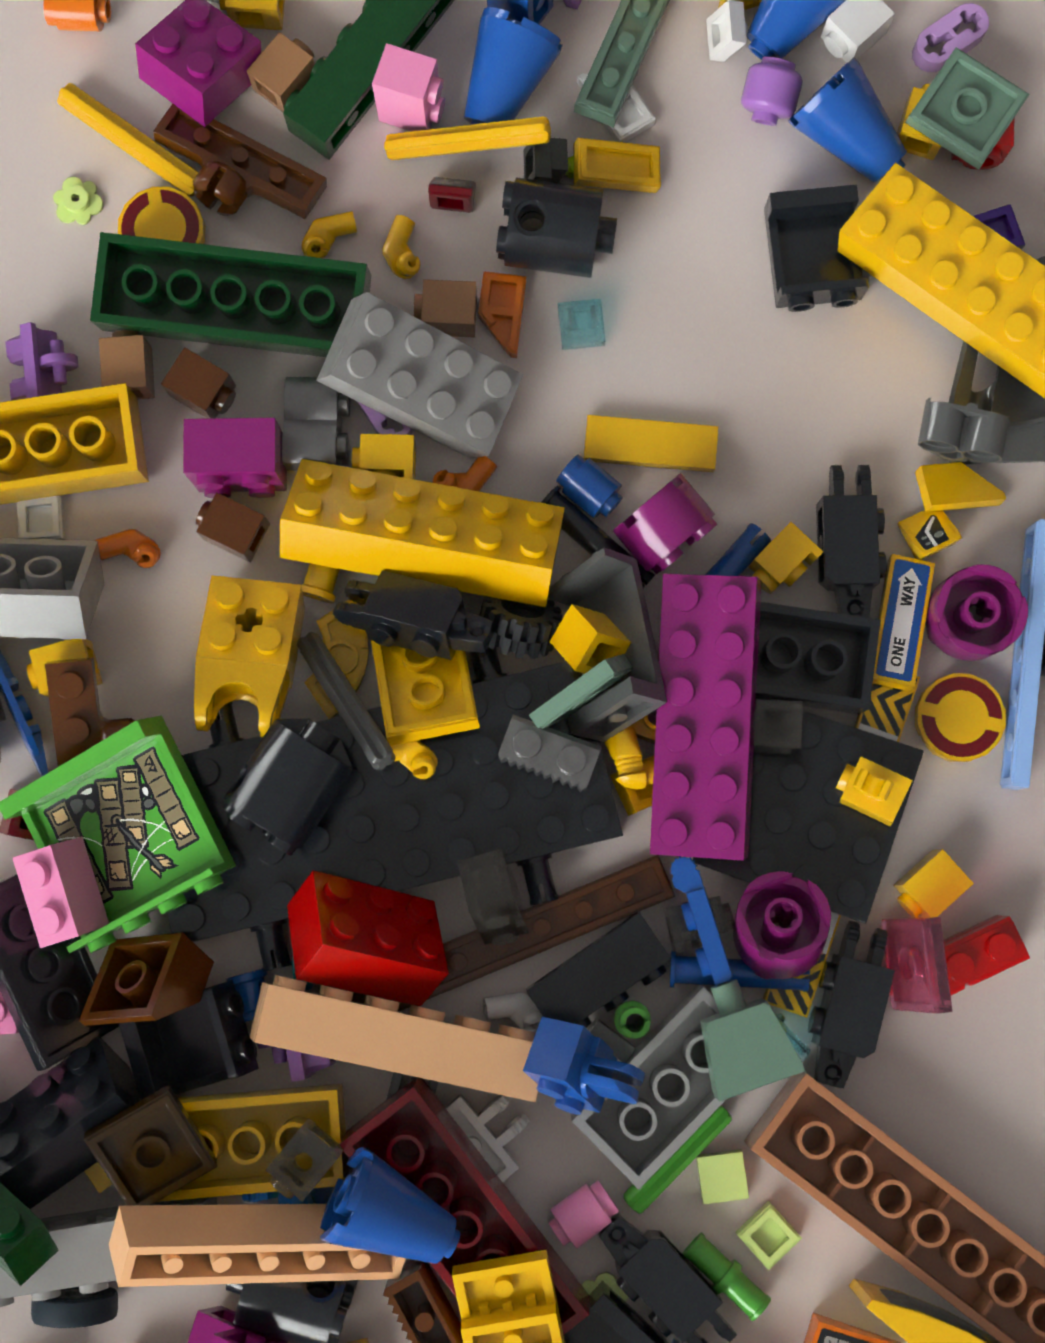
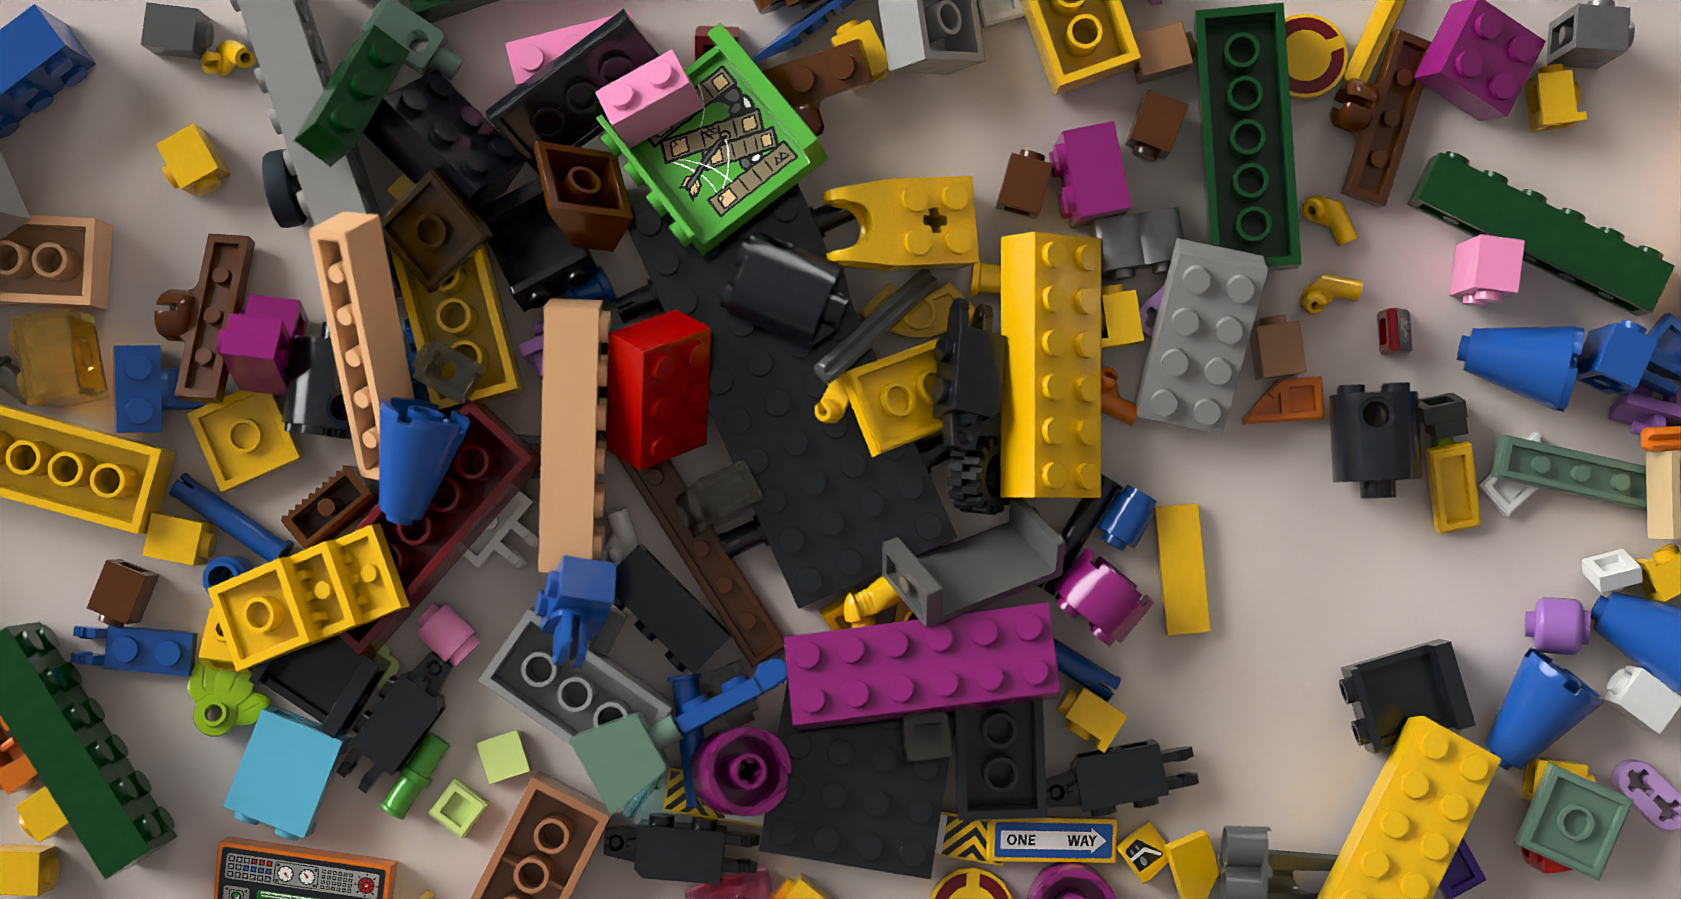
camera: 85 degrees right, 5 degrees up
(133, 545) = (990, 94): orange arm -> none
(281, 69) = (1486, 142): medium nougat brick -> none
(468, 138) = (1450, 336): yellow axle -> none
(549, 753) = (860, 526): flat silver brick -> none
(581, 324) = (1287, 480): clear light blue tile -> none
(581, 691) = (921, 546): sand green tile -> none
(588, 638) = (973, 545): yellow brick -> none
(639, 1028) = (622, 654): bright green pin -> none
(641, 1199) = (471, 686): bright green axle -> none
(873, 790) = (882, 836): yellow brick -> none

